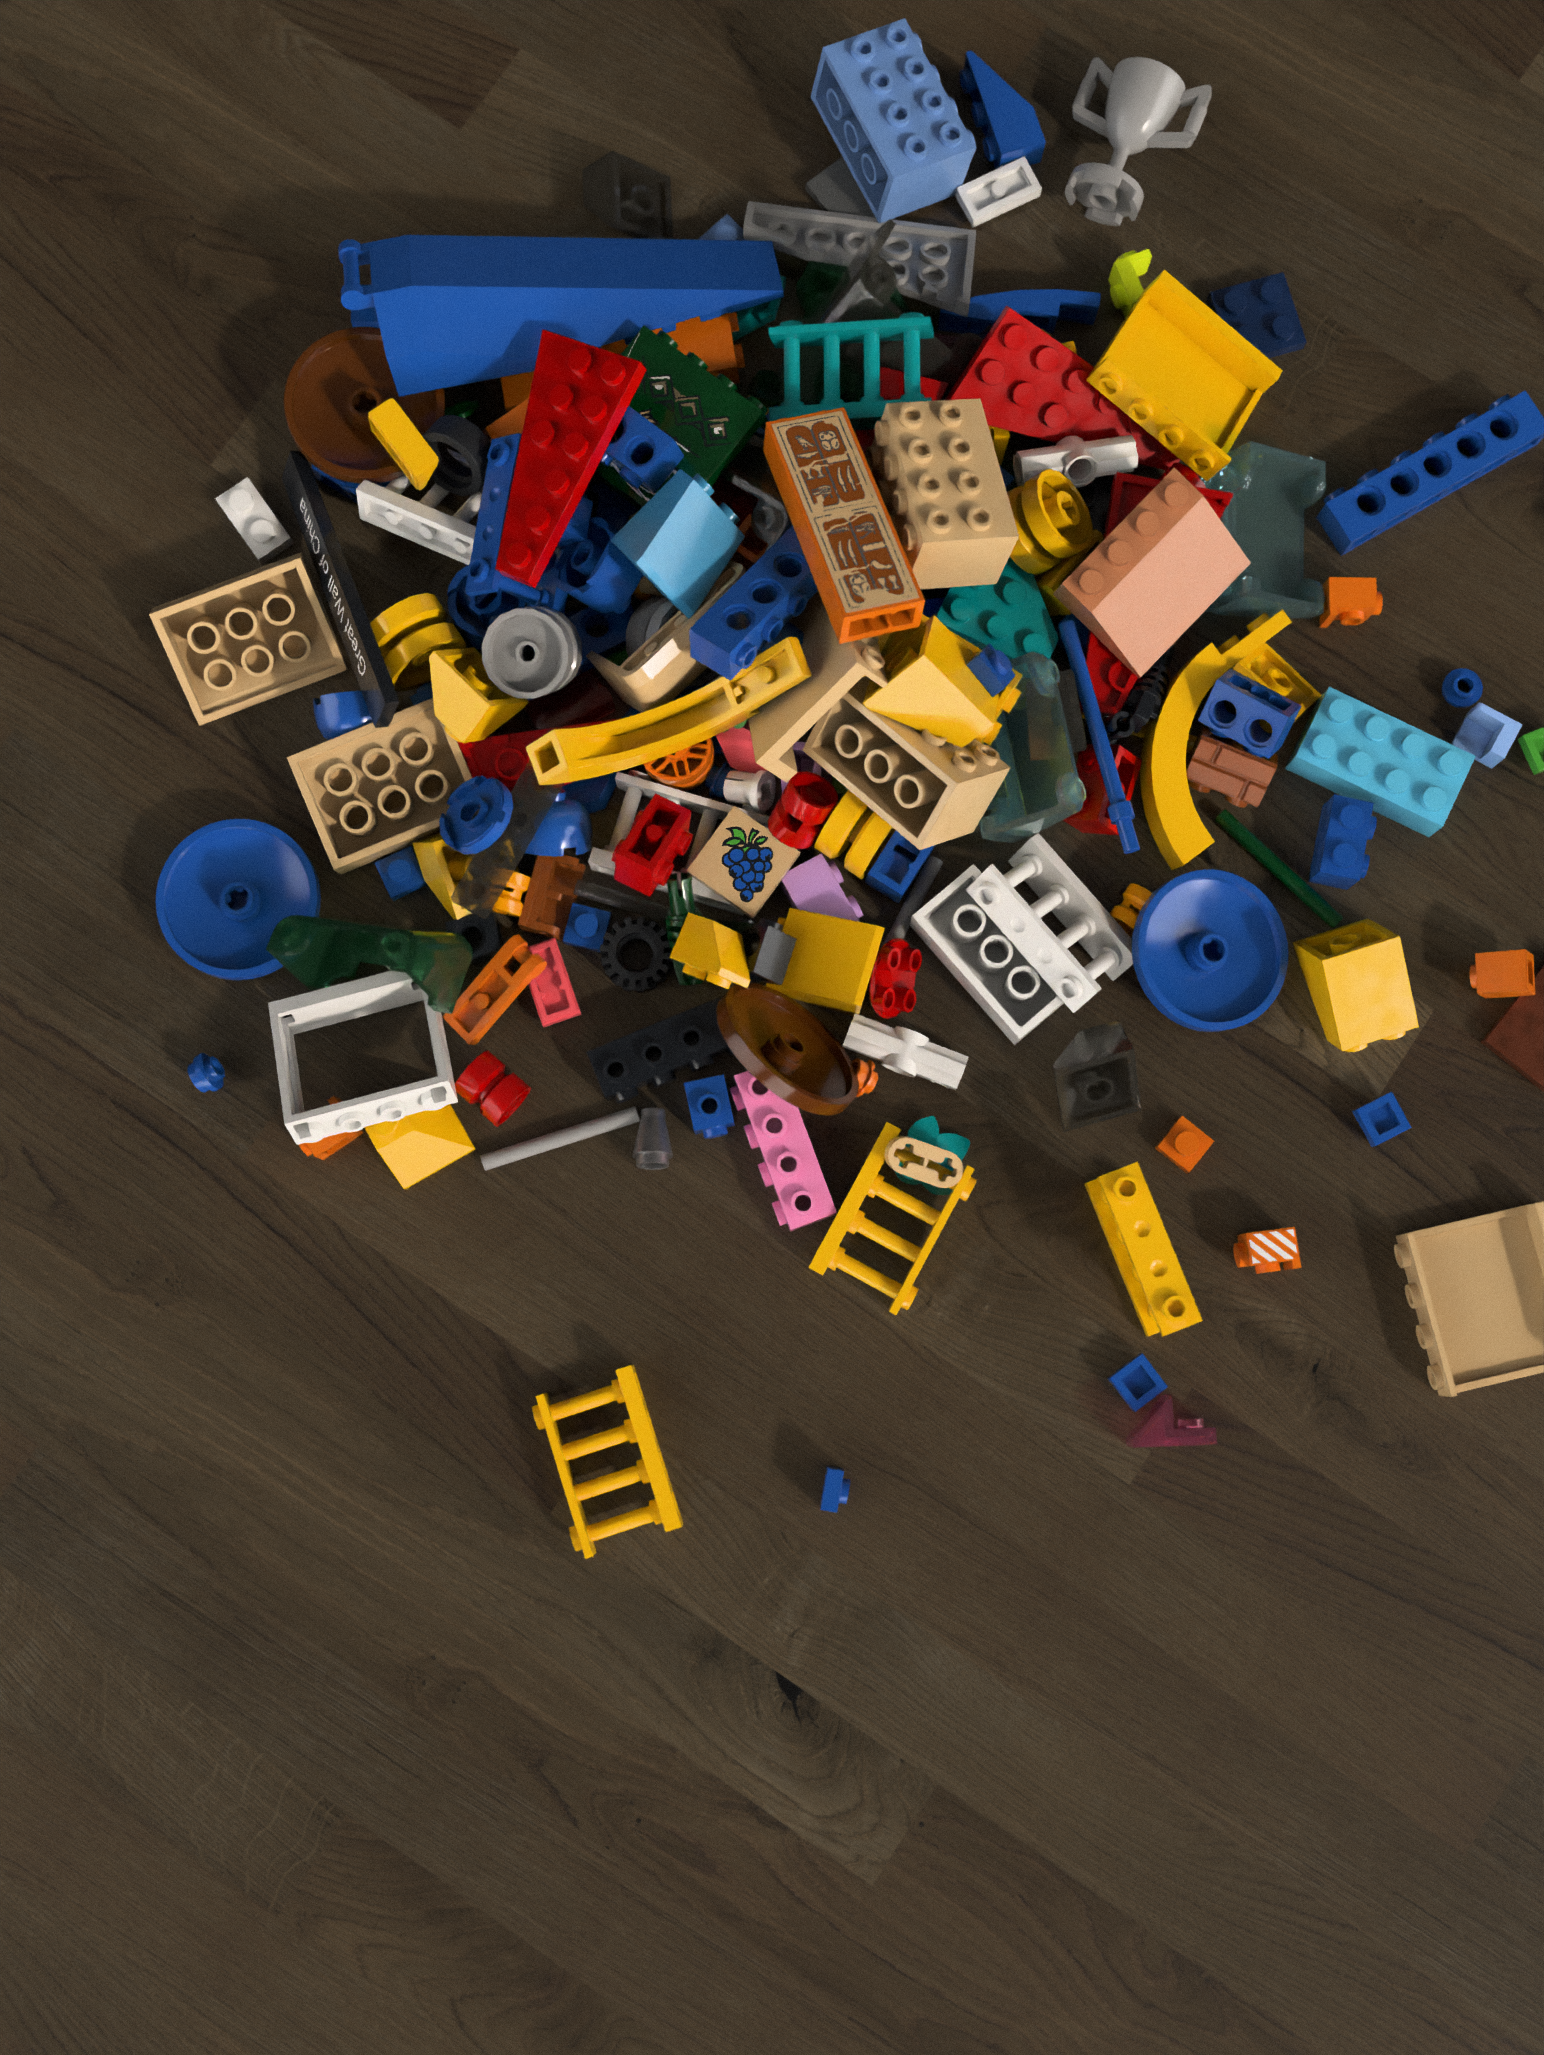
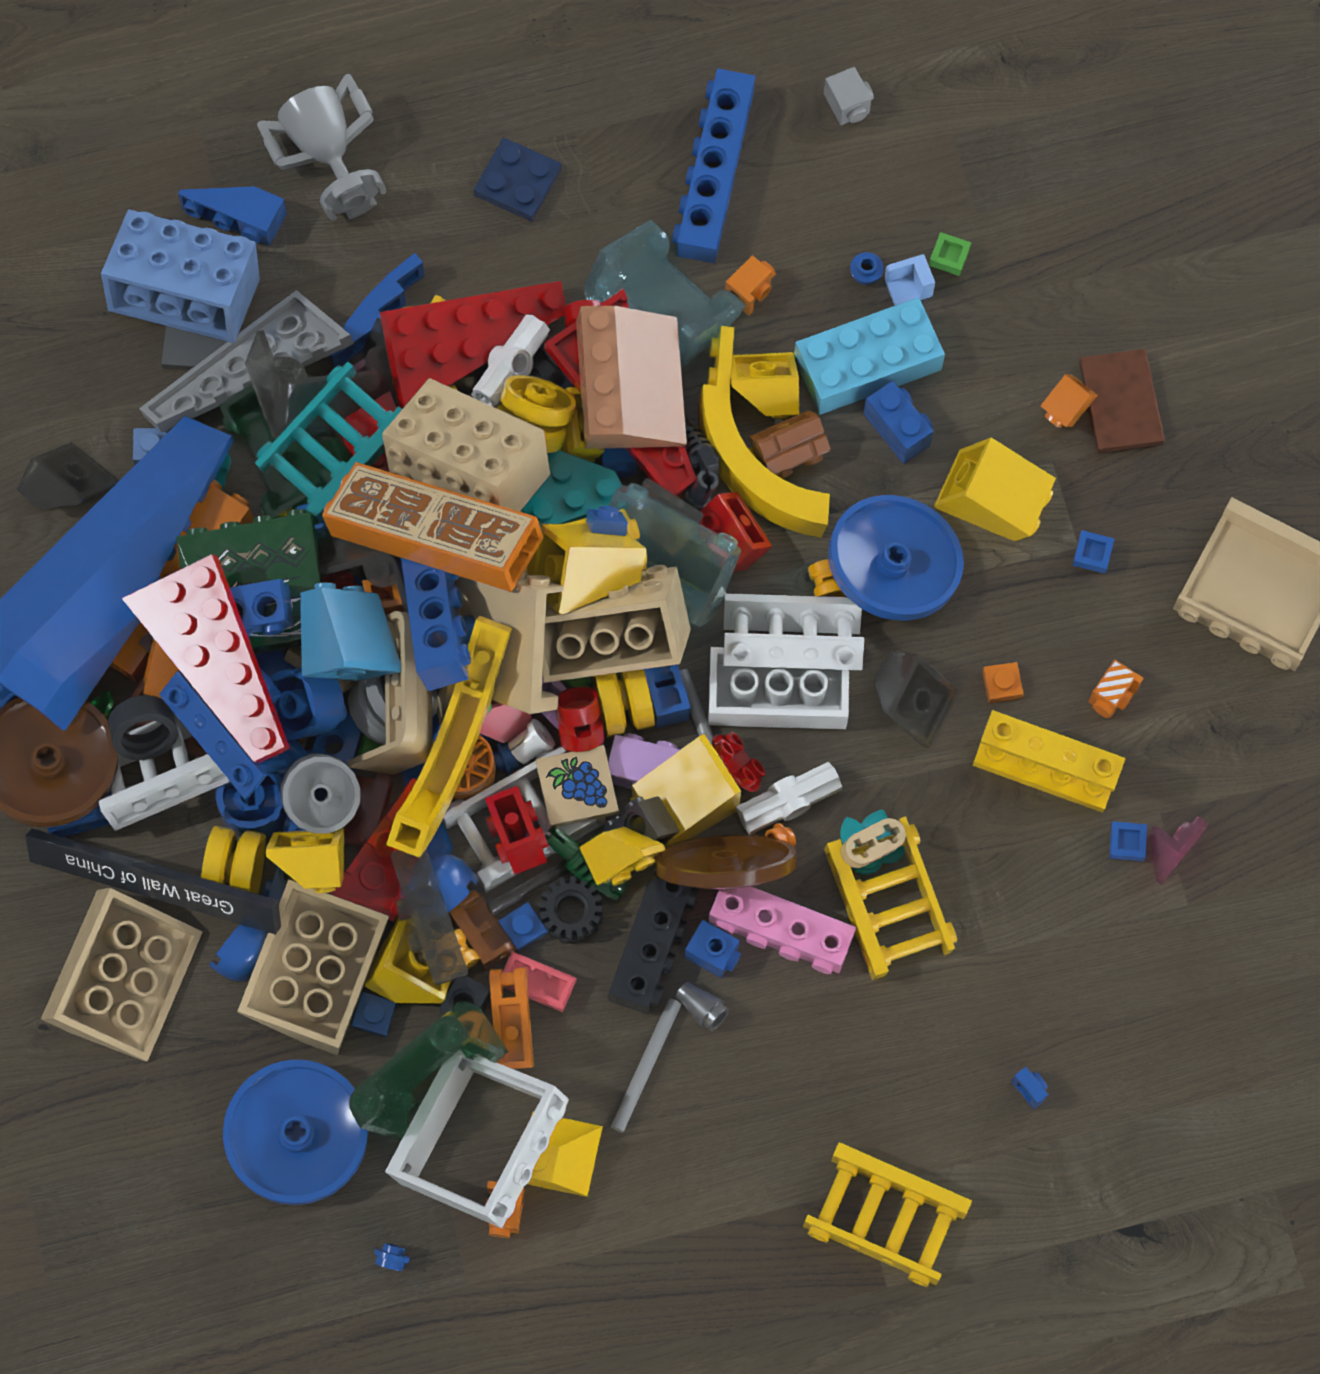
camera: 50 degrees left, 10 degrees down
(254, 521) = (42, 904): white plate -> none
(403, 442) = (104, 752): yellow slope -> none
(489, 1085) = (576, 1076): red wheel -> none
(492, 819) = (410, 922): blue tile -> none
(998, 191) = (284, 255): white plate -> none
(1120, 810) = (759, 528): blue bar -> none
(1124, 279) = (421, 234): neon yellow bracket -> none
(1183, 375) = (517, 251): yellow panel -> none
(1251, 704) = (767, 393): blue brick -> none
(1279, 868) = (879, 473): dark green bar -> none

